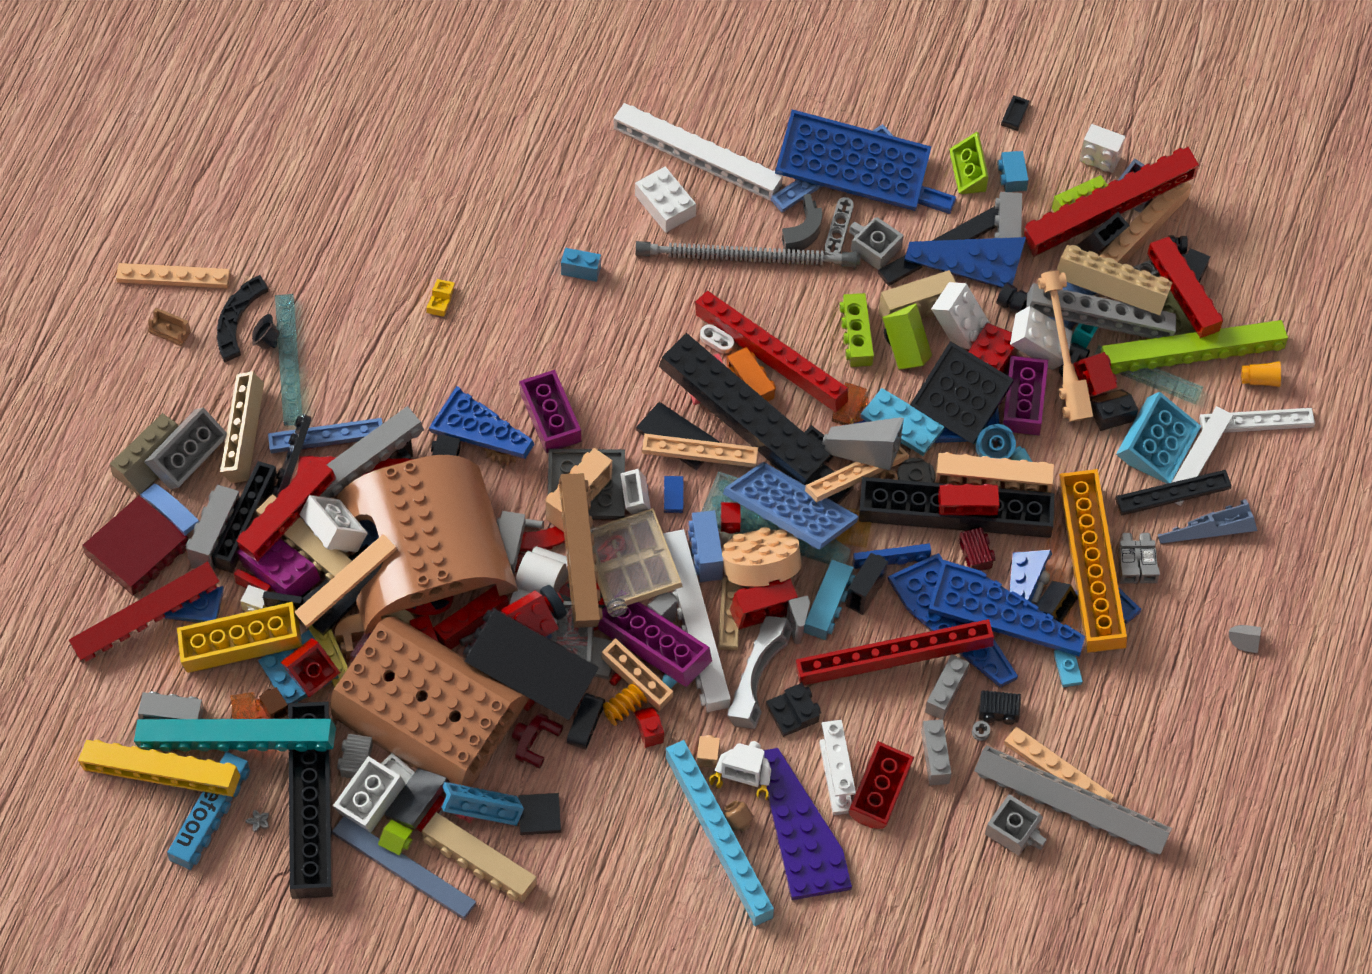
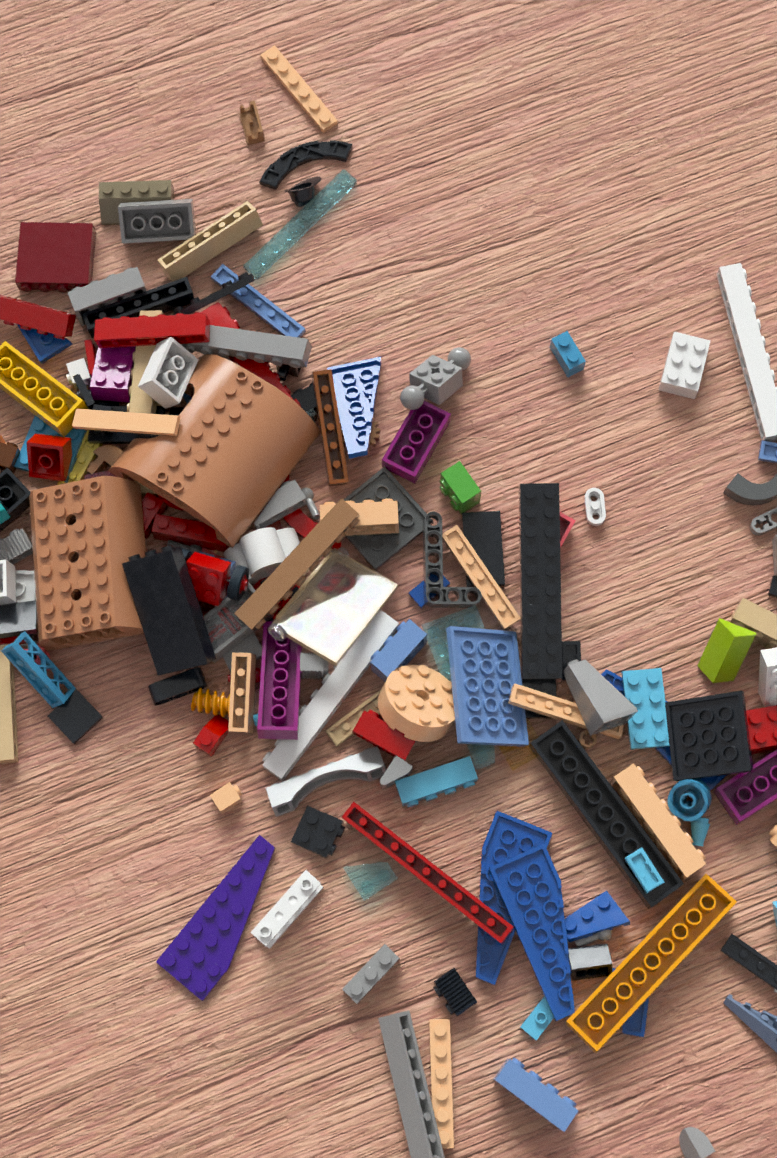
camera: 55 degrees right, 15 degrees up
(170, 508) = (102, 252): medium blue slope -> none
(440, 297) = (449, 281): yellow slope -> none
(488, 457) = (330, 427): none -> dark orange brick
(516, 358) = (436, 379): none -> light grey brick
(527, 735) = (129, 654): dark red connector -> none
(617, 409) = (460, 488): none -> bright green brick
(635, 491) = (401, 560): white brick -> none
(668, 472) = (437, 569): none -> dark grey beam
(719, 833) = (163, 863): medium azure brick -> none
(730, 517) = (436, 649): red brick -> none
(738, 816) = (188, 865): medium nougat head -> none
(744, 765) = (232, 837): white torso -> none
(746, 368) = (584, 560): orange brick -> none
(772, 351) = (616, 559): red brick -> none
(846, 259) = (758, 542): light grey hose -> none
(850, 412) = (626, 655): clear orange brick -> none
(856, 305) = (682, 628): lime brick -> none
(861, 700) = (370, 878): none -> clear light blue wing
(867, 583) = (473, 800): black brick -> none
(880, 786) = (304, 955): red brick -> none
(895, 555) = (511, 793): blue plate -> none
(916, 470) = (611, 756): dark grey tile -> none
(947, 687) = (436, 936): light grey brick -> none
(968, 499) = (612, 821): red brick -> none
(975, 733) = (422, 999): light grey bush -> none
(976, 549) = (581, 860): dark red brick -> none
(1016, 826) = (356, 1091): light grey hinge -> none
(1022, 507) = (644, 870): none -> medium azure plate
(1122, 706) = (535, 1094): none -> medium blue brick
(1137, 559) = (696, 997): light grey hips -> none

